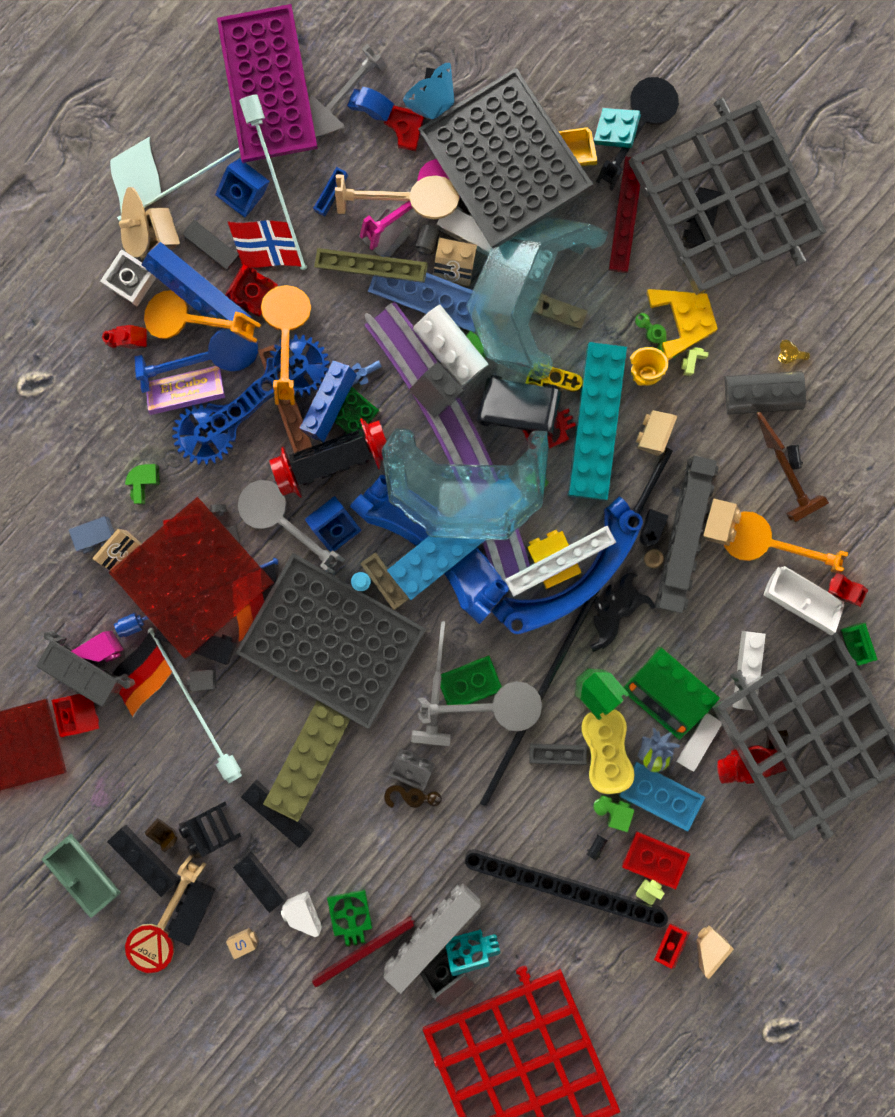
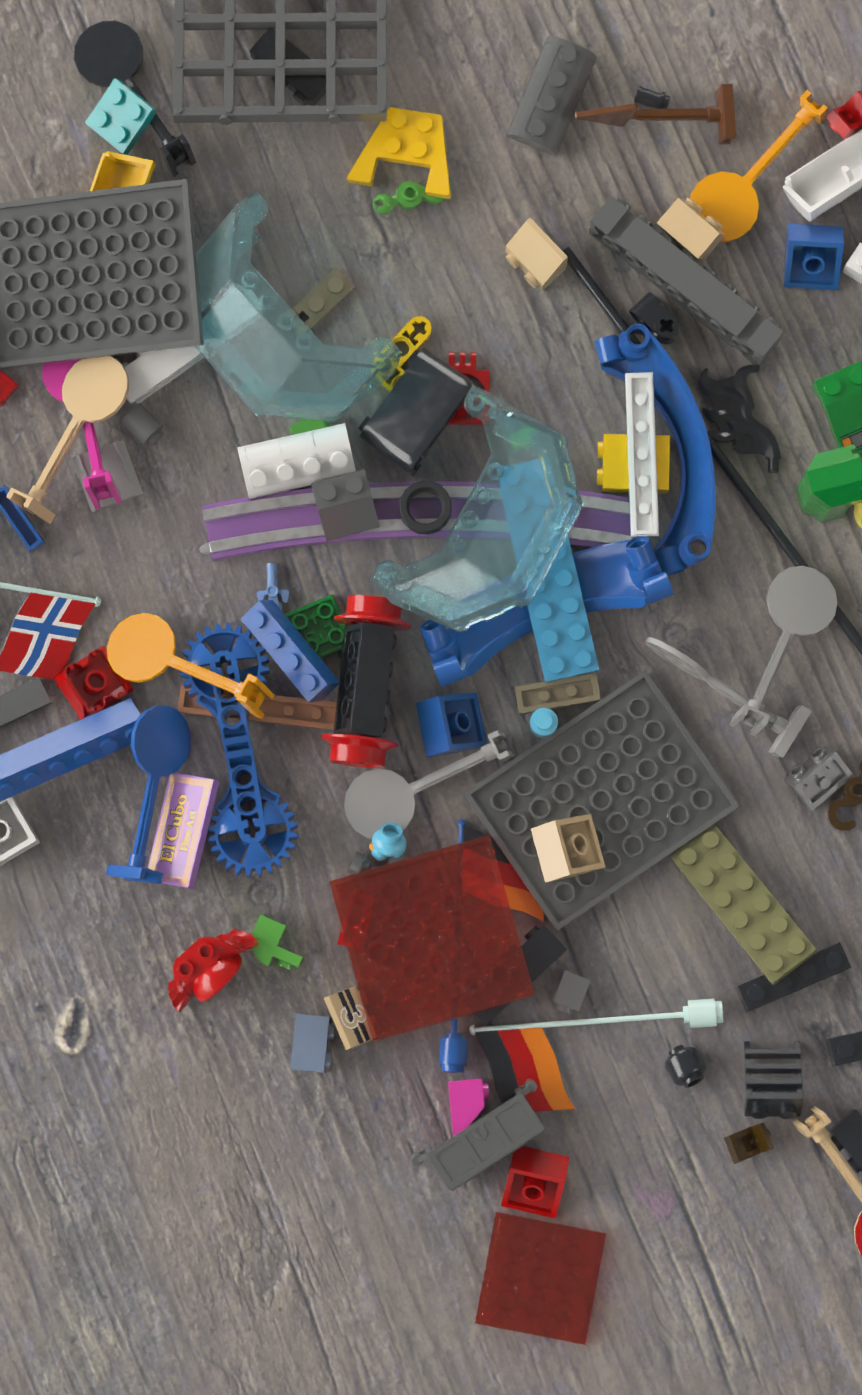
camera: 65 degrees left, 5 degrees down
(81, 875) = (751, 1273): sand green container -> none
(107, 448) = (208, 966): none -> red piece
(126, 336) = (74, 874): red brick -> none
(143, 860) = (771, 1183): black brick -> none
(168, 314) = (72, 804): light orange piece -> none
(190, 773) = (685, 1066): none -> black head
(239, 521) = (388, 842): none -> medium azure animal
(288, 635) = (568, 847): none -> tan slope
(371, 265) = (141, 511): olive plate -> none
(426, 296) = (206, 464): medium blue plate -> none
(445, 441) = (423, 528): none -> black tyre
(455, 261) = (189, 405): tan slope -> none
(470, 682) = (742, 646): green tile -> none
(597, 421) = (485, 323): teal brick -> none
(624, 220) = (242, 163): dark red plate -> none
(648, 366) = (446, 224): yellow helmet -> none
(653, 558) = (695, 338): tan tile -> none
(688, 363) = (466, 171): yellowish green bracket -> none
(742, 608) = (813, 256): none -> blue slope
(790, 352) = (516, 39): clear yellow rock -> none

